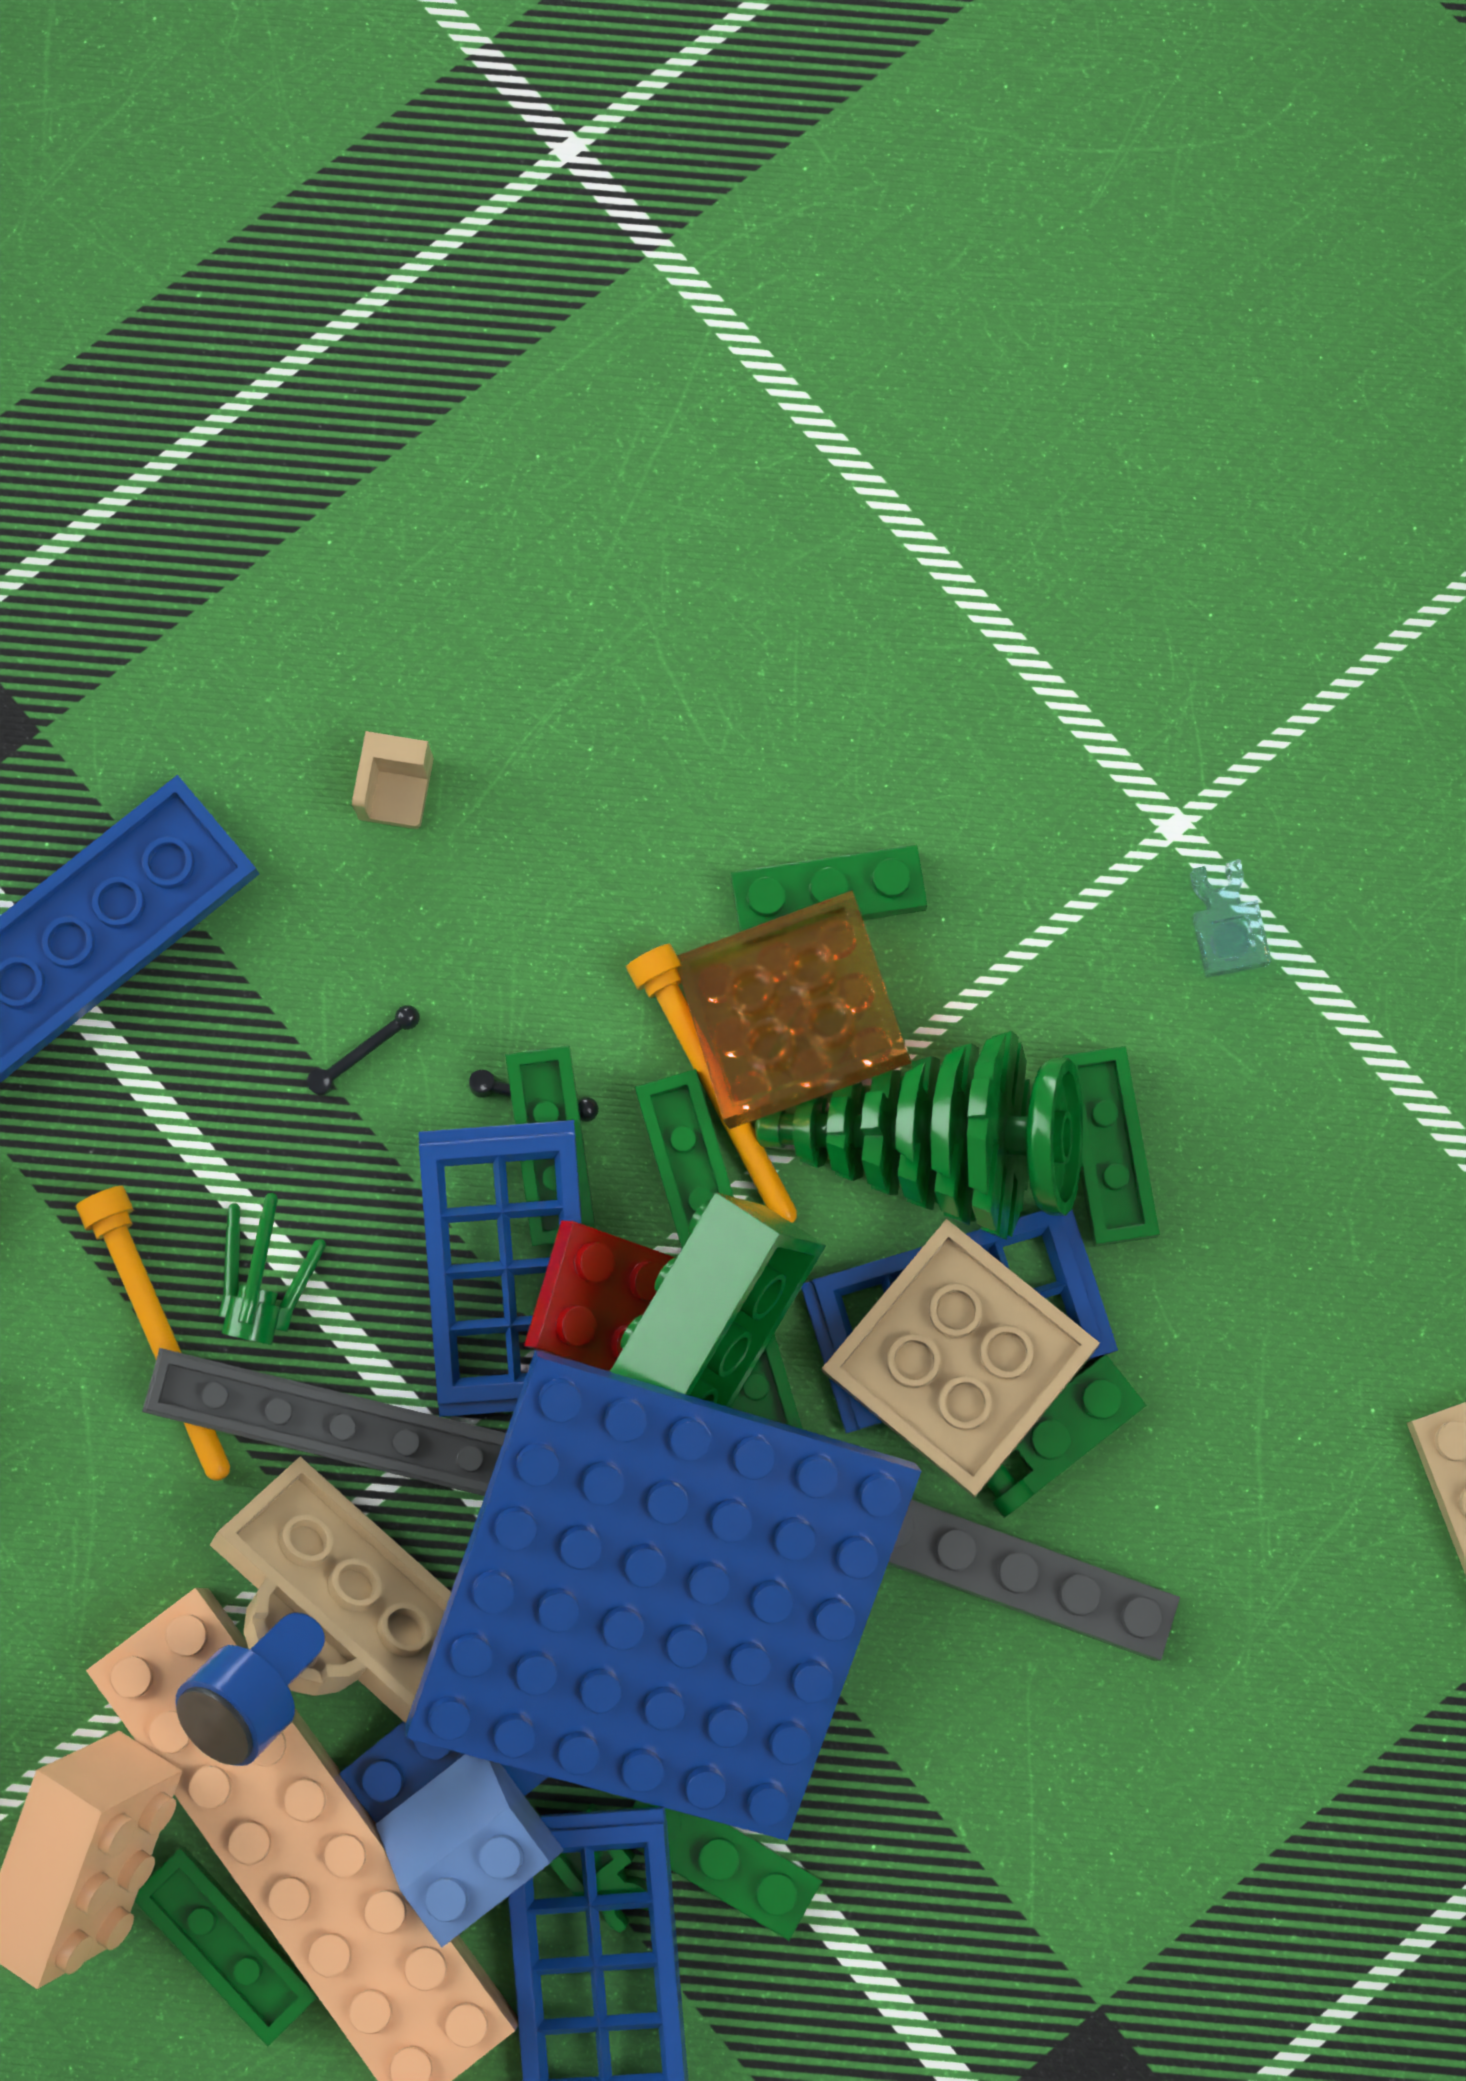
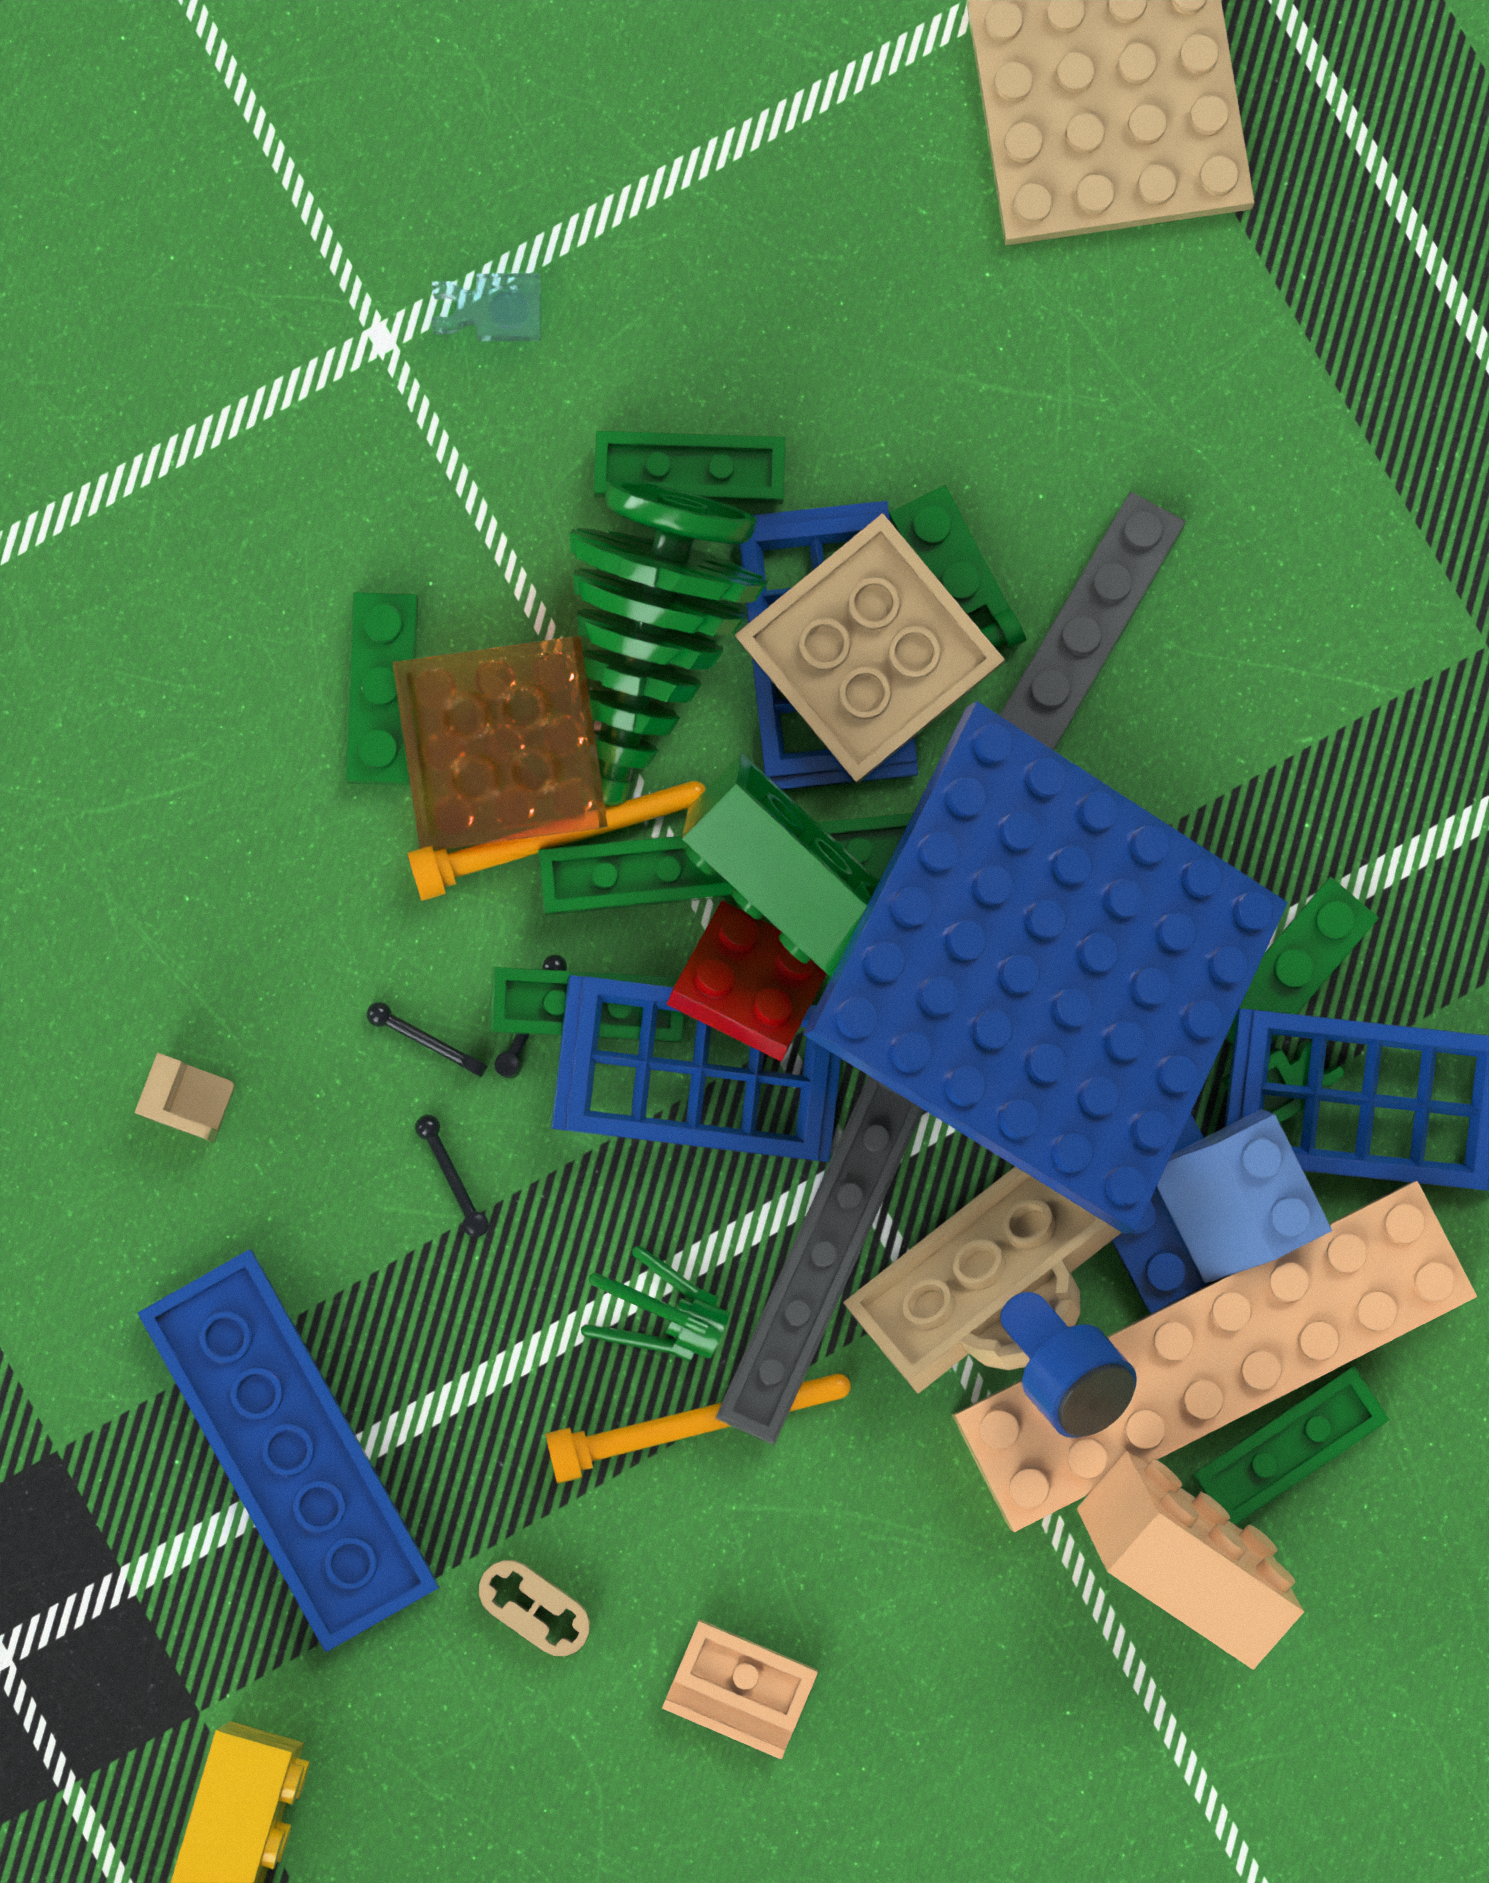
camera: 80 degrees left, 5 degrees up
(508, 951) = (380, 1015): none -> black hinge

